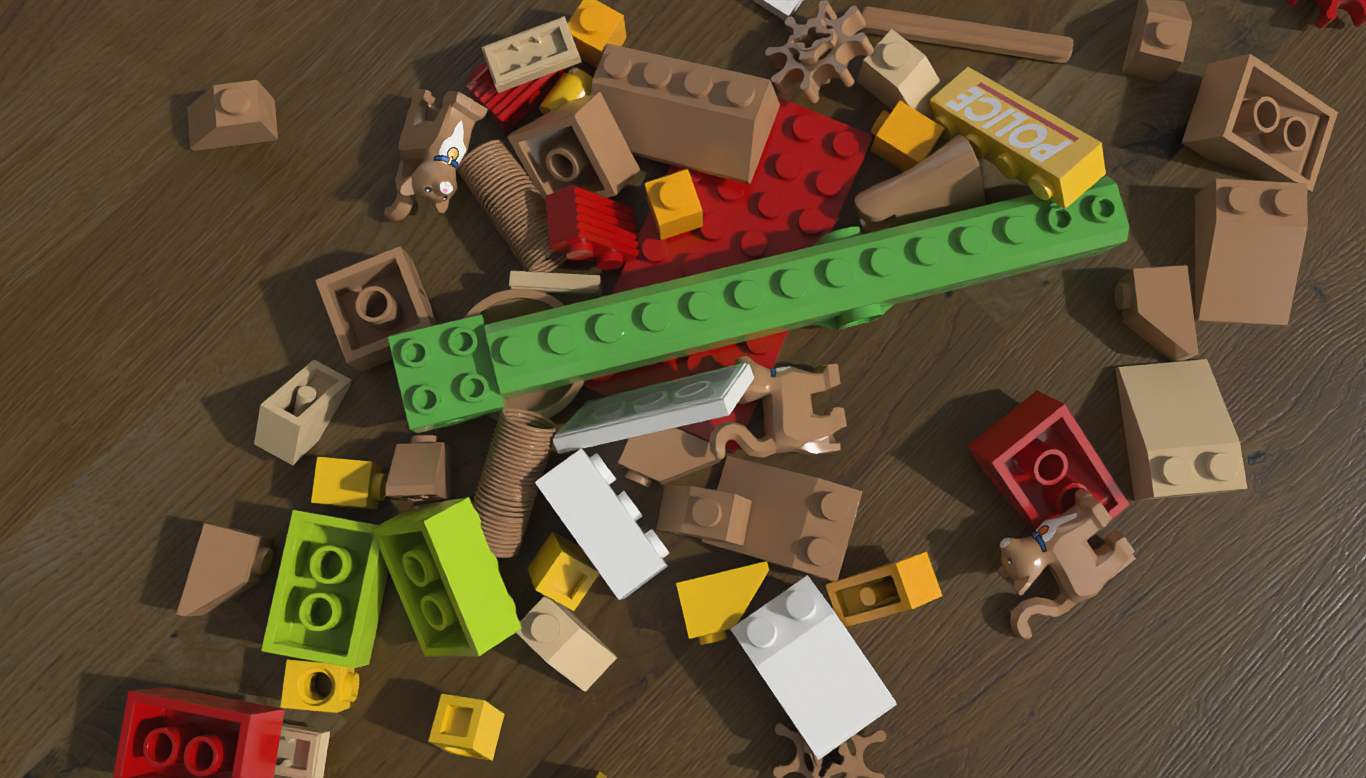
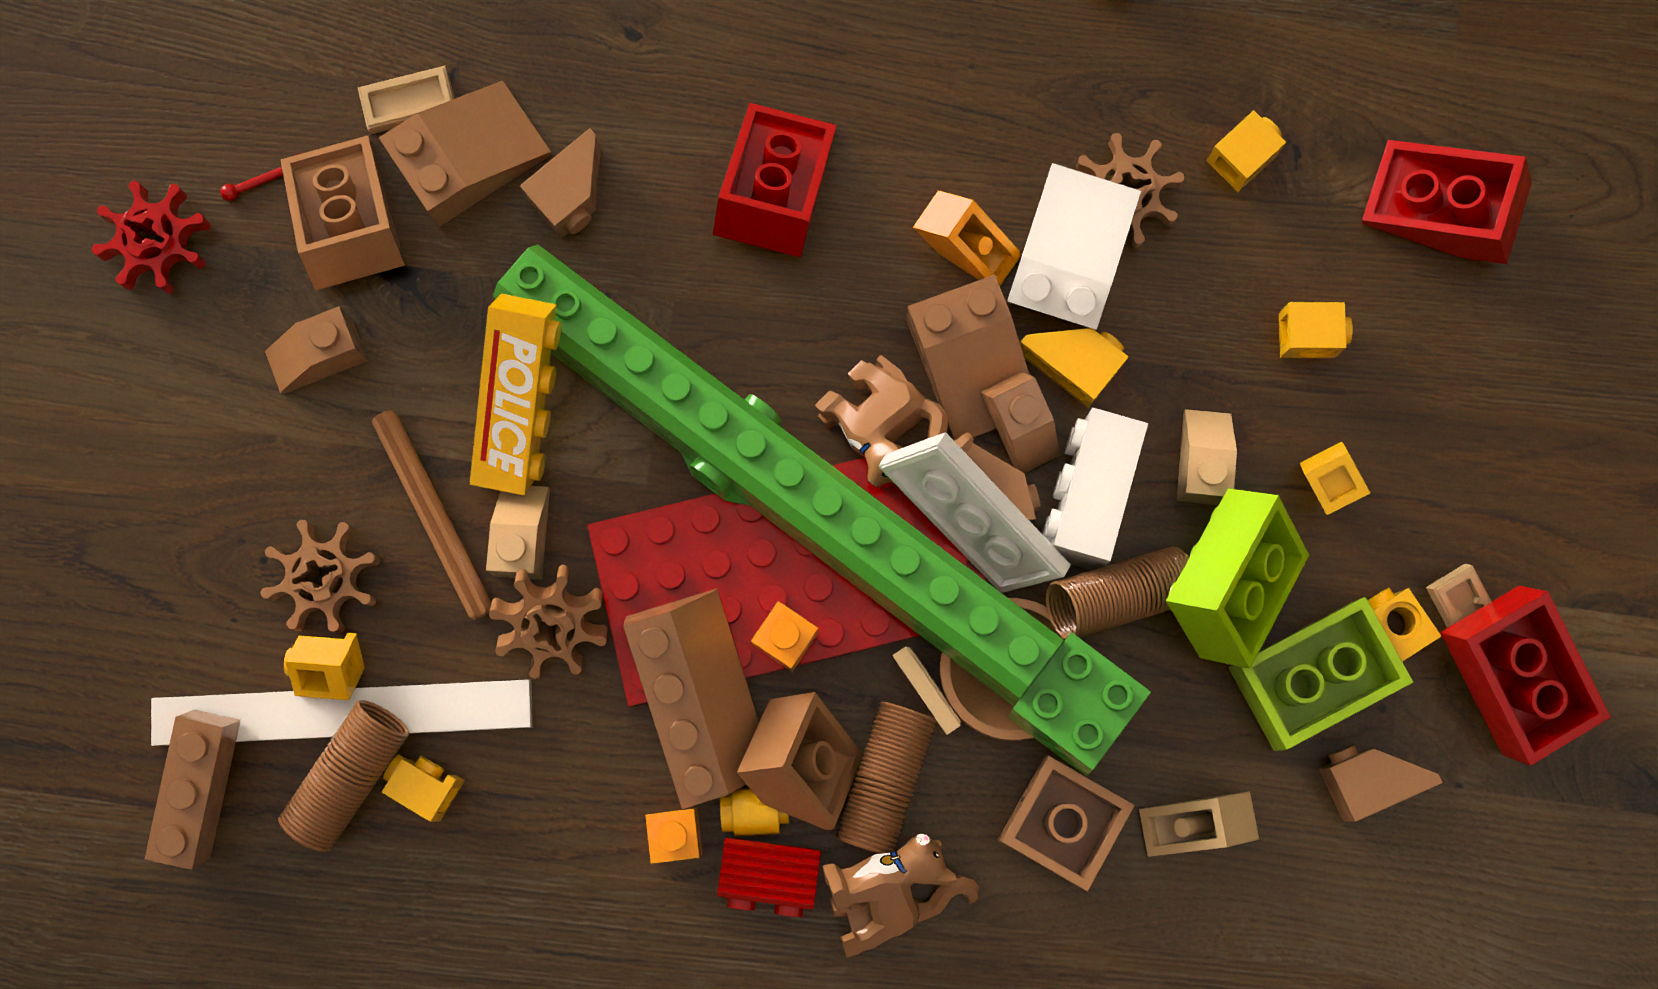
camera: 130 degrees left, 0 degrees up
(348, 483) = (1225, 733): yellow brick -> none
(421, 471) = (1173, 675): medium nougat slope -> none
(531, 54) = (745, 865): tan plate -> none
(562, 571) = (1157, 498): yellow brick -> none
(591, 227) = (858, 692): red brick -> none
(904, 136) = (570, 494): light orange brick -> none
(933, 188) = (597, 432): medium nougat piece -> none
(1073, 563) = (829, 126): medium nougat animal -> none
(1178, 431) = (661, 104): tan slope -> none
(1326, 240) = (398, 99): none -> tan tile
(1334, 61) = (230, 192): none -> red hinge

